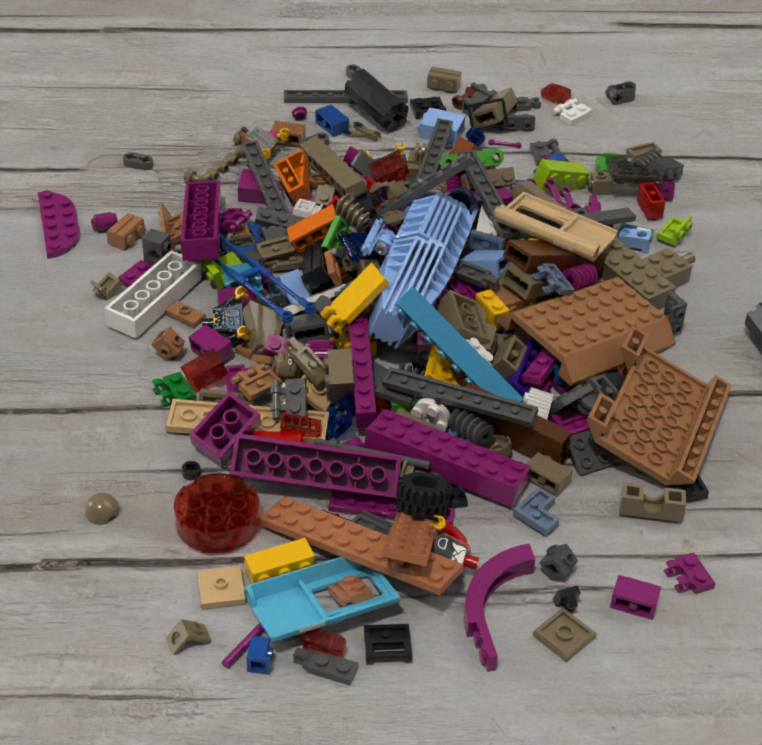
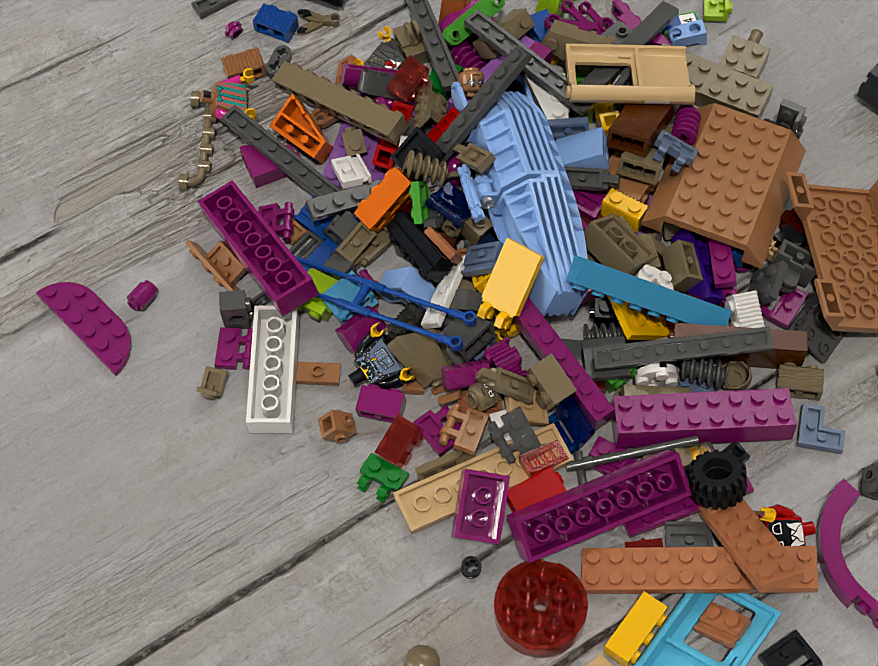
camera: 25 degrees left, 20 degrees up
(125, 231) = (176, 297): medium nougat brick -> none
(137, 161) = (109, 189): dark grey beam -> none

